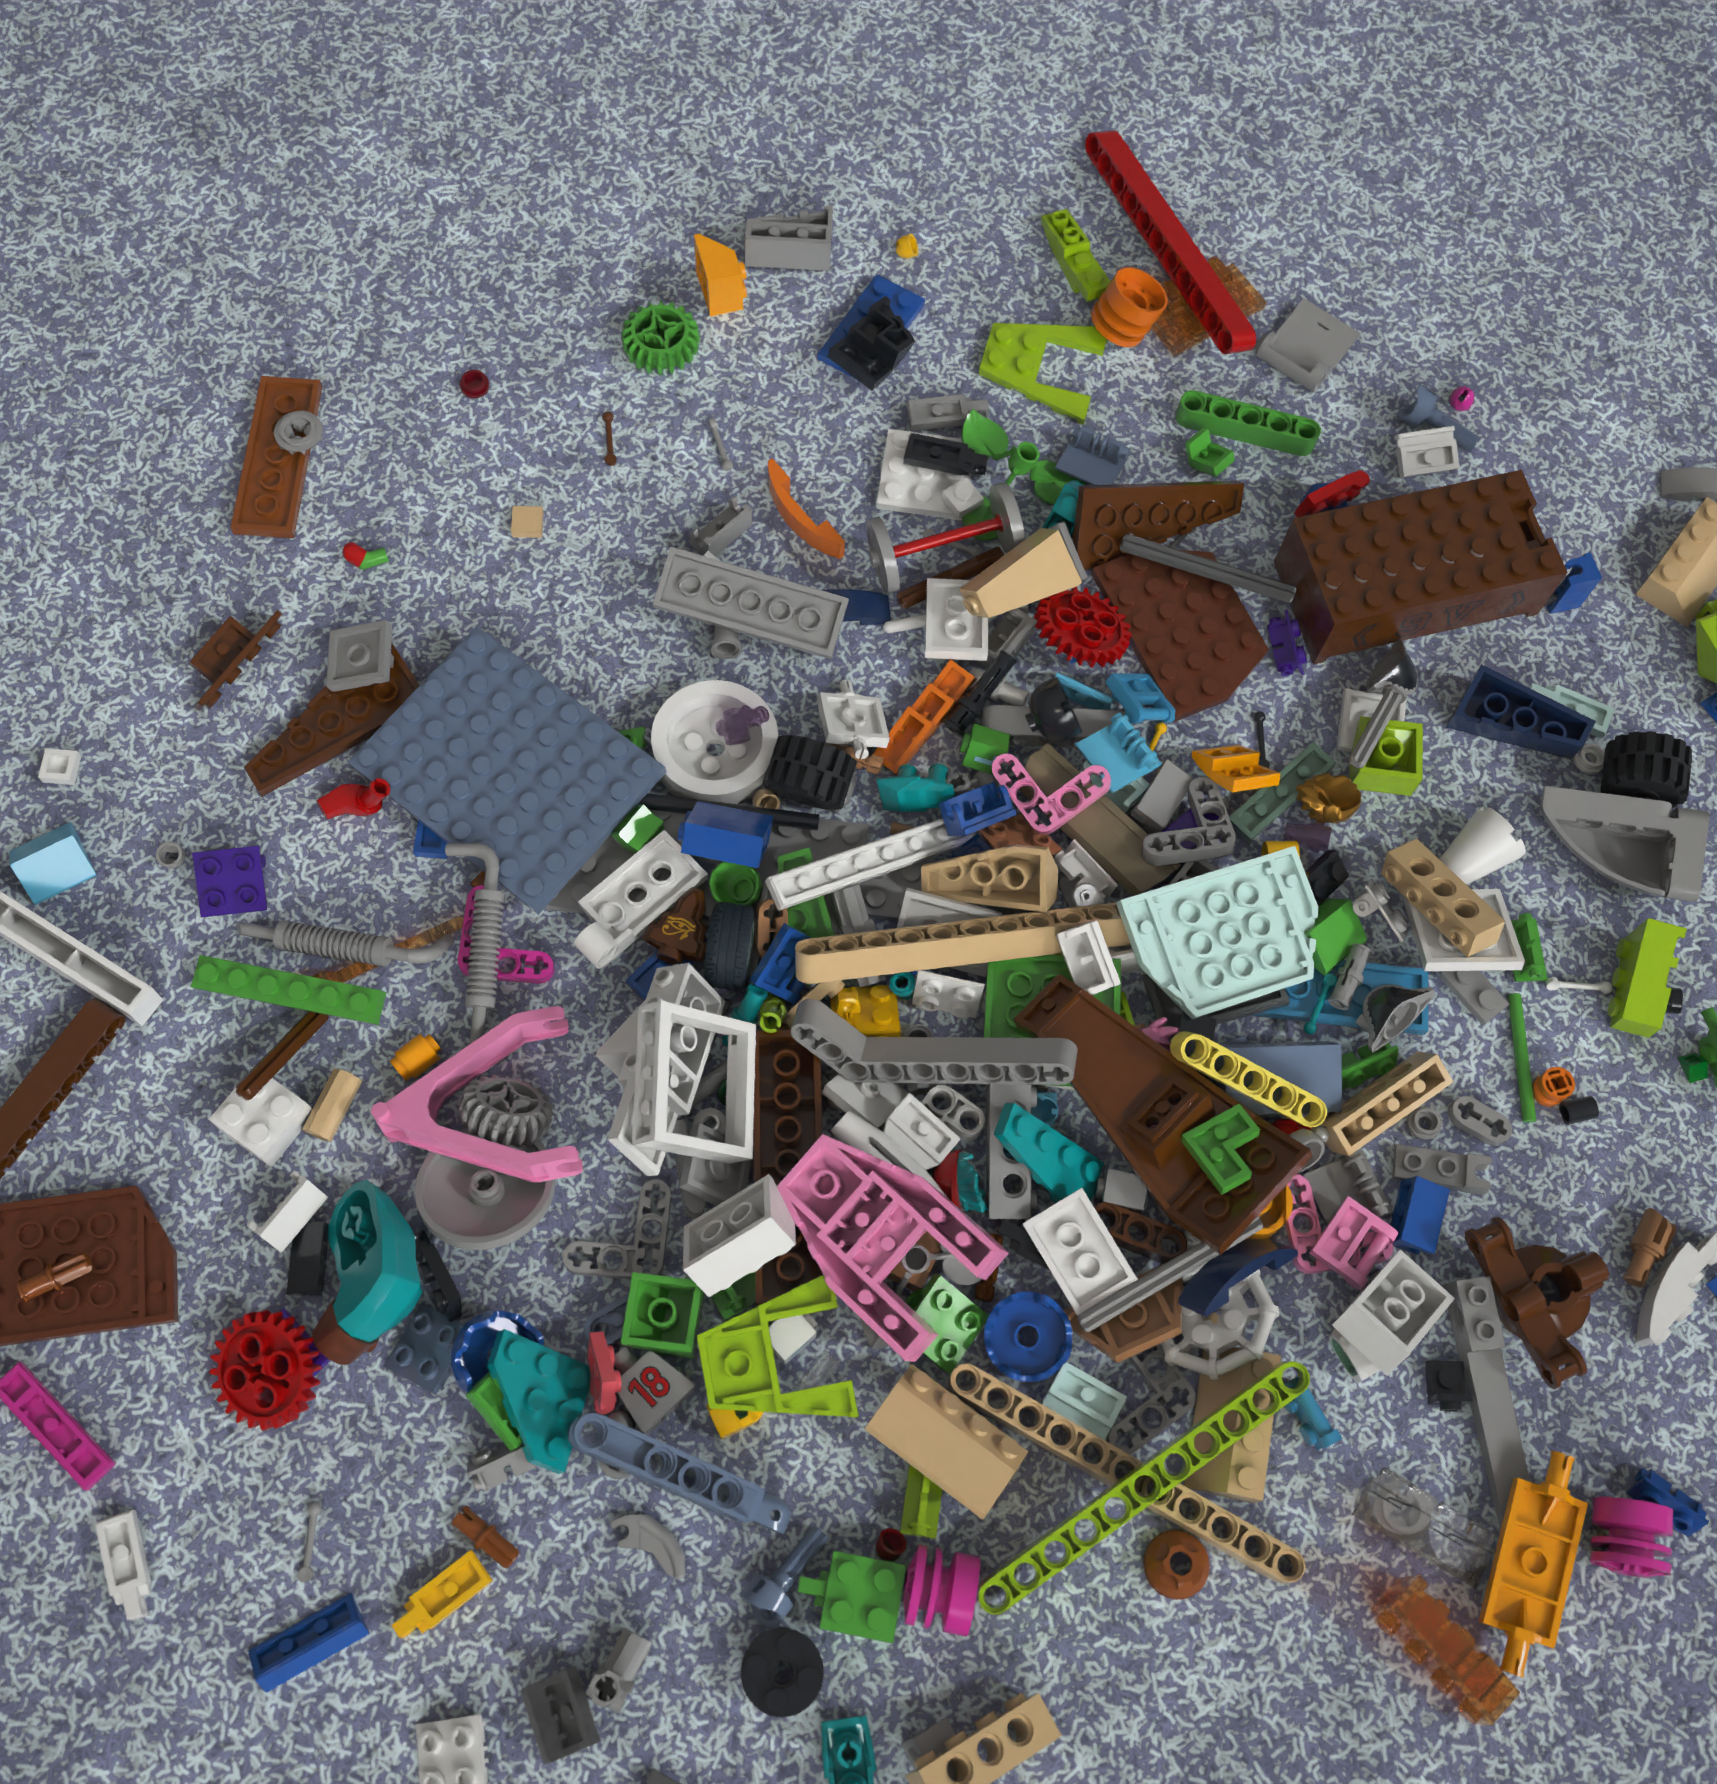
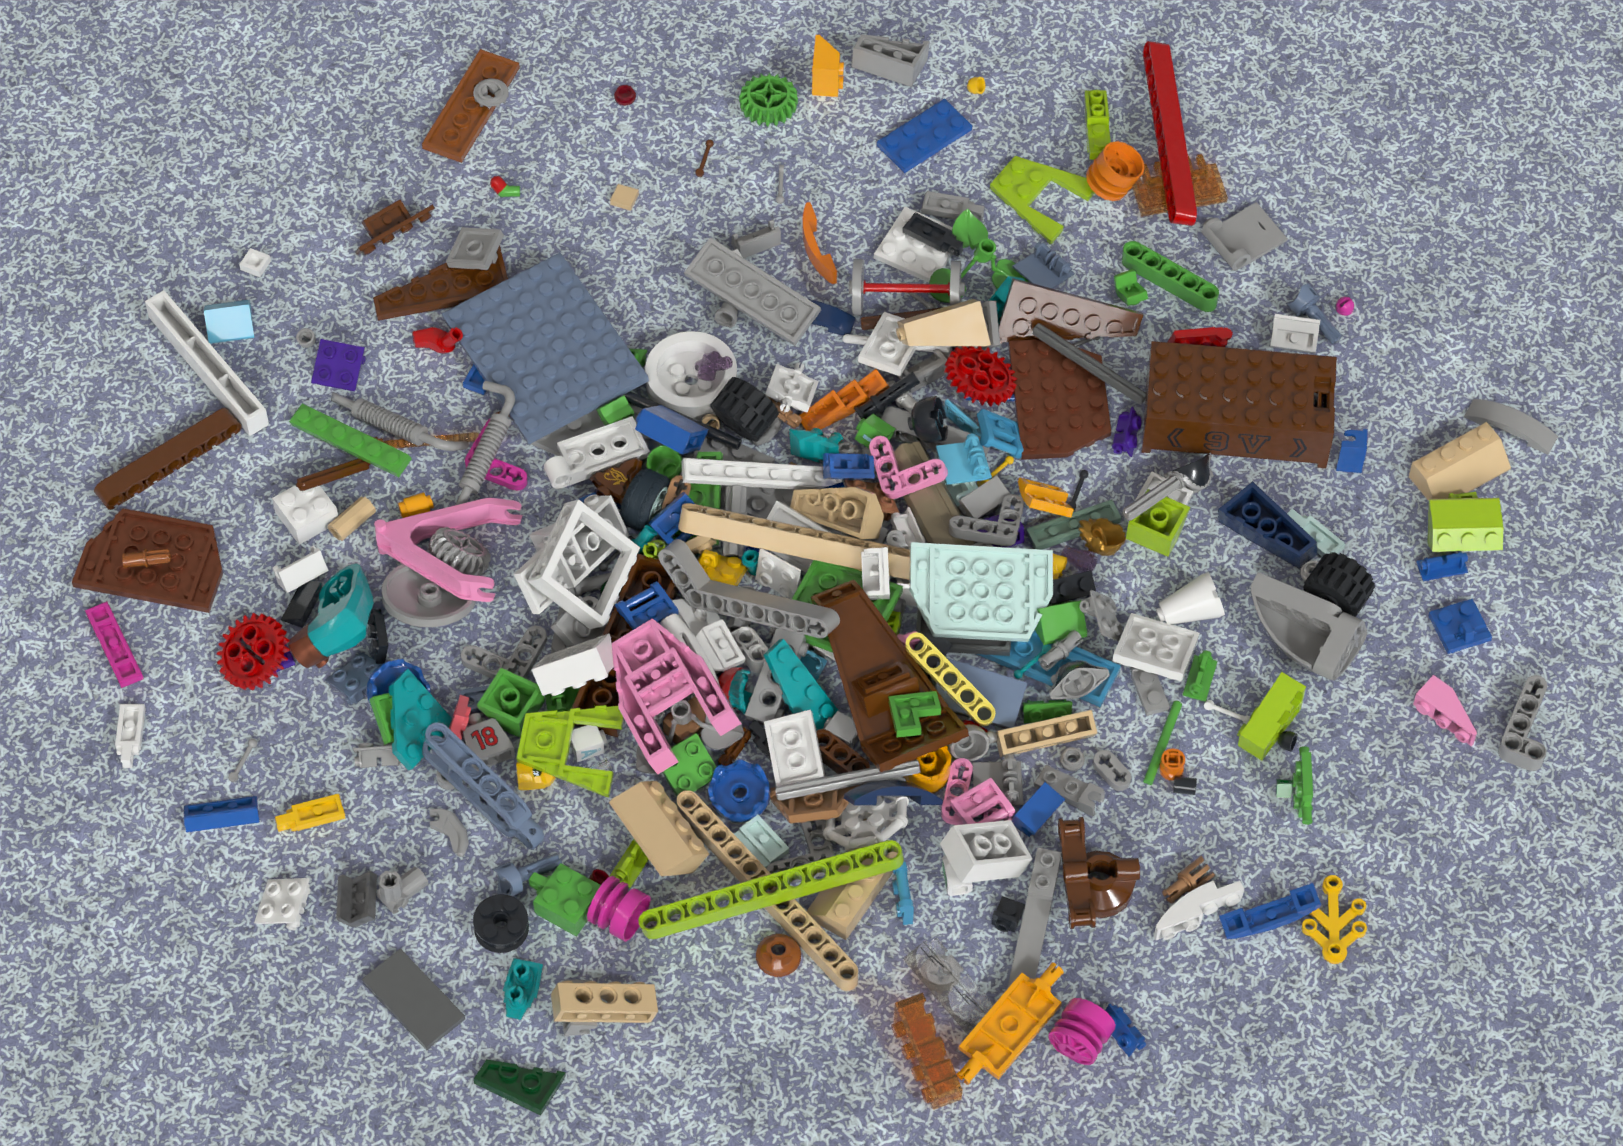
camera: 25 degrees right, 10 degrees down
(485, 1537) = (349, 791): dark orange axle -> none
(809, 1120) = (655, 609): none -> blue plate
(873, 345) = (916, 146): black slope -> none
(962, 497) = (934, 266): white plate -> none
(1442, 897) = (1147, 619): tan brick -> none

